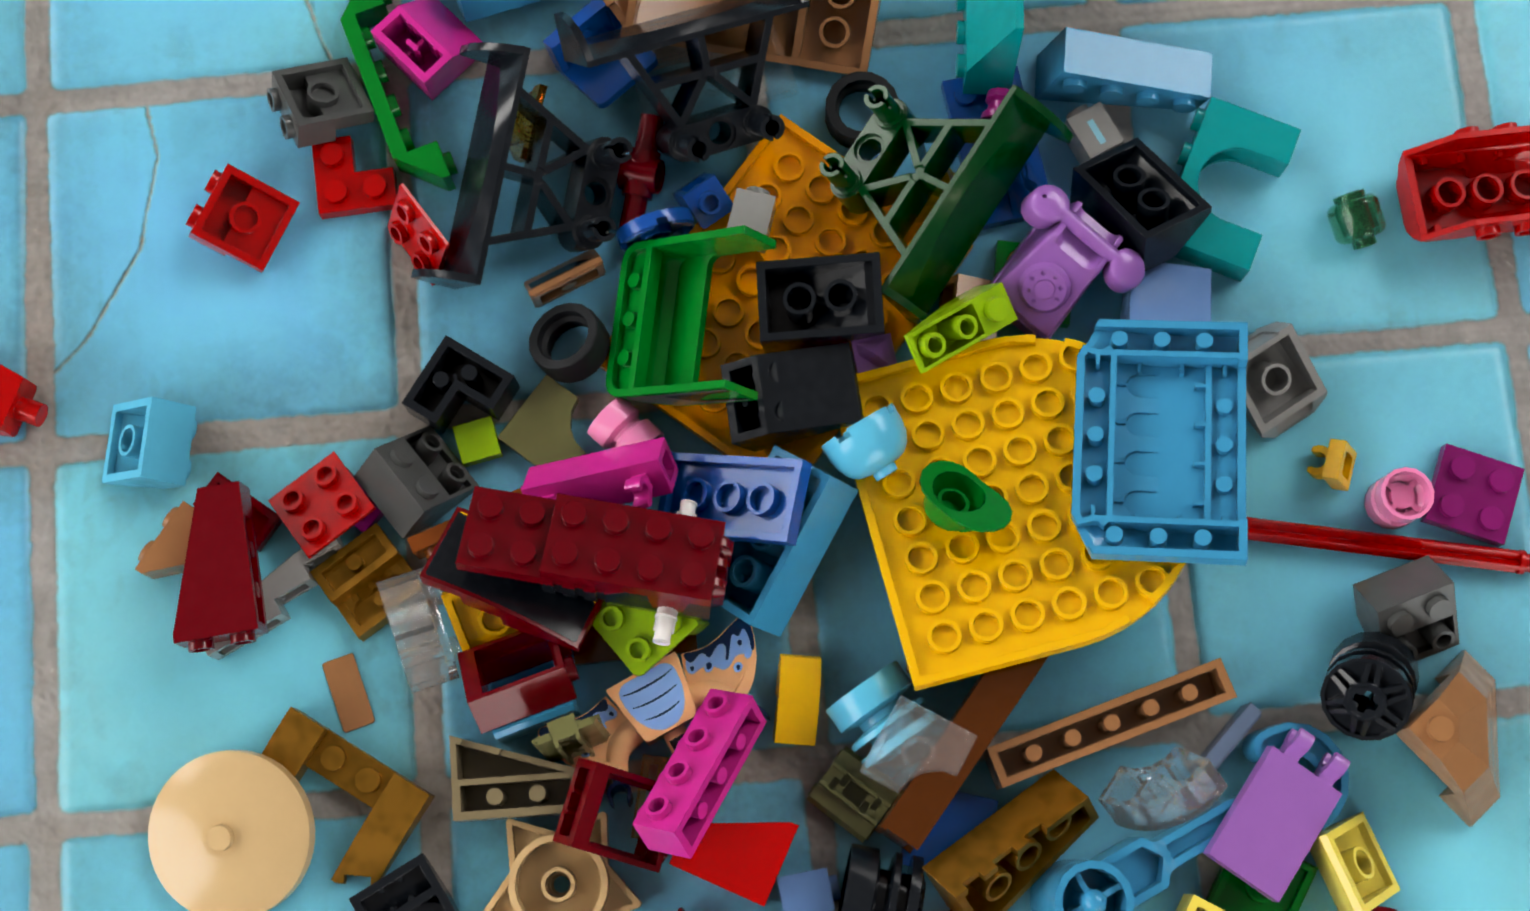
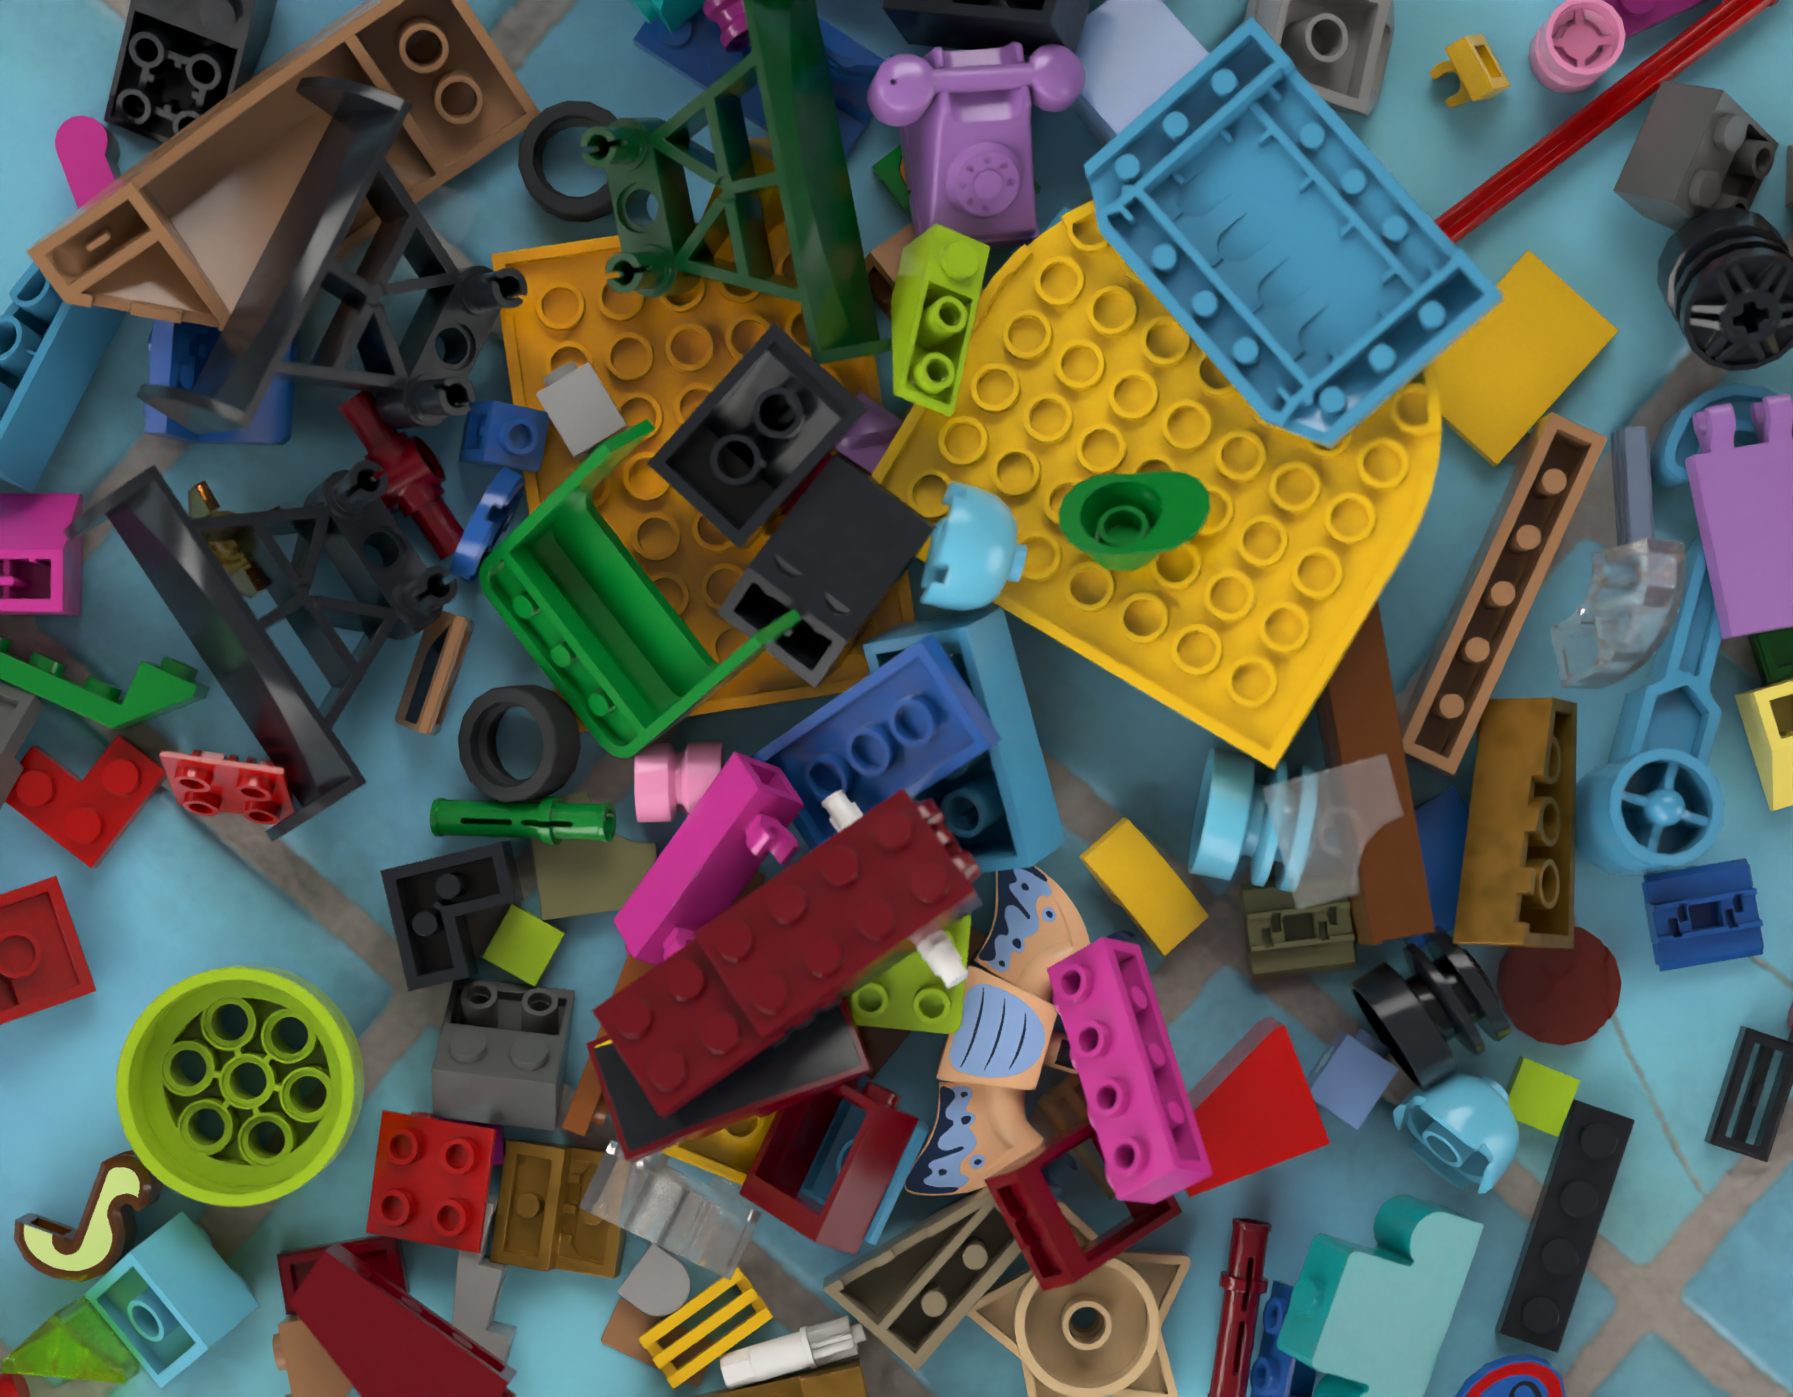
camera: 45 degrees left, 10 degrees up
(84, 418) = (74, 1346): none -> clear neon green slope
(156, 379) = (105, 1229): none -> reddish brown animal
(236, 351) = (163, 1106): none -> lime wheel
(343, 699) = (664, 1357): none -> yellow tile
(377, 661) = (657, 1282): none -> light grey tile
(413, 763) = (792, 1352): none -> white piece
(563, 408) = (547, 820): none -> green pin
(571, 738) = (953, 1165): olive piece -> none
(1226, 620) = (1518, 358): none -> yellow tile

